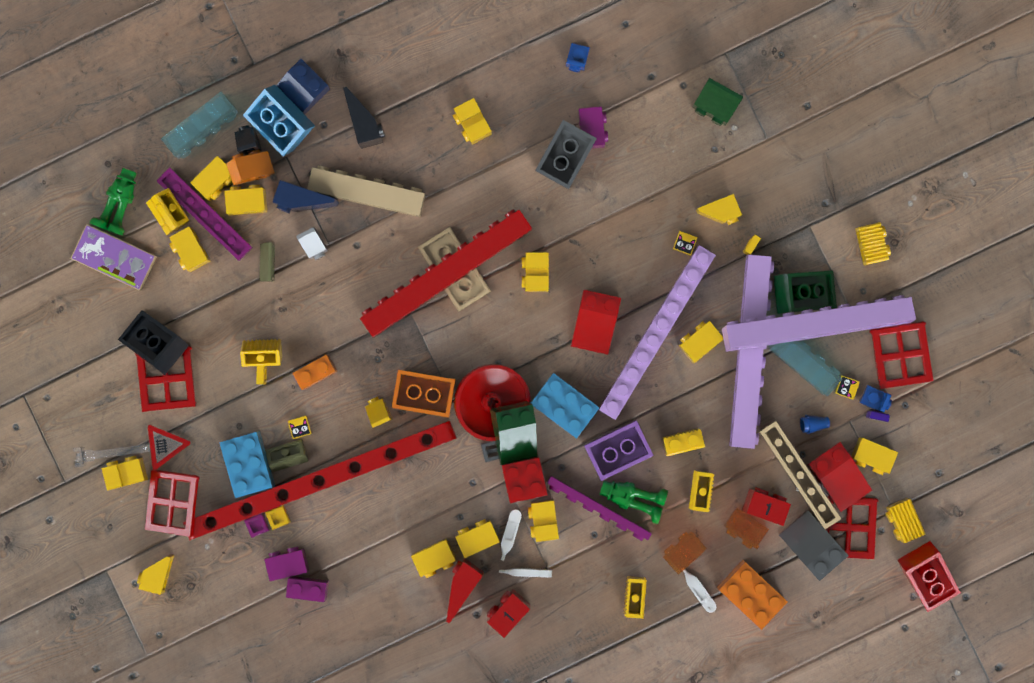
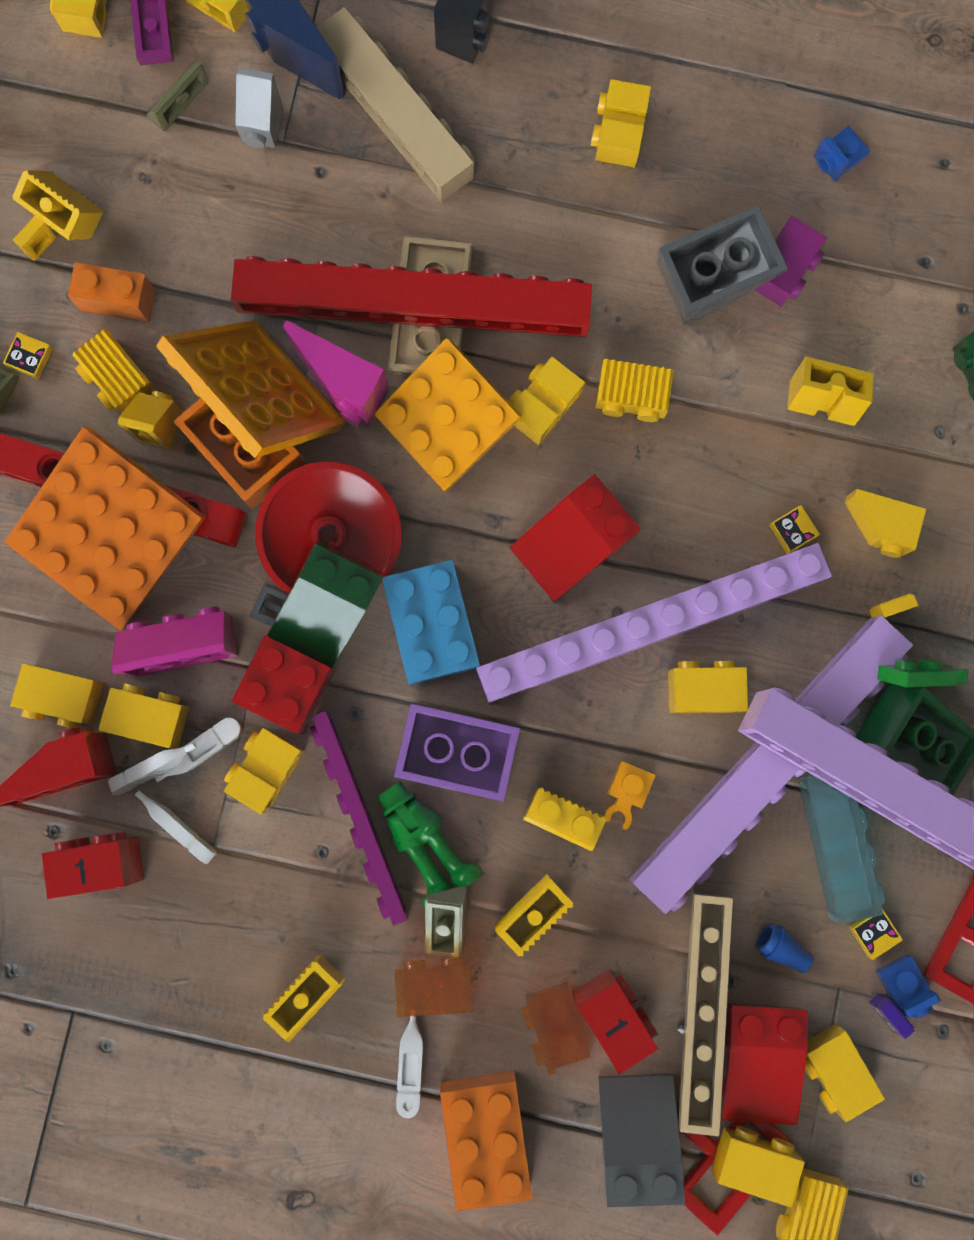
camera: 30 degrees right, 5 degrees down
(344, 405) = (112, 370): none -> yellow brick
(398, 474) = (104, 528): none -> orange plate
(414, 366) = (251, 386): none -> light orange plate
(448, 332) = (348, 381): none -> dark pink slope
(465, 497) = (174, 643): none -> dark pink slope
(496, 558) = (148, 769): none -> white piece
(501, 312) = (447, 414): none -> light orange plate
(570, 237) = (634, 390): none -> yellow brick
(653, 171) = (830, 388): none -> yellow brick
(668, 522) = (446, 922): none -> olive slope
(700, 408) = (629, 788): none -> light orange plate
(786, 264) = (926, 674): none -> green plate
(868, 518) = (758, 1166): none -> yellow brick

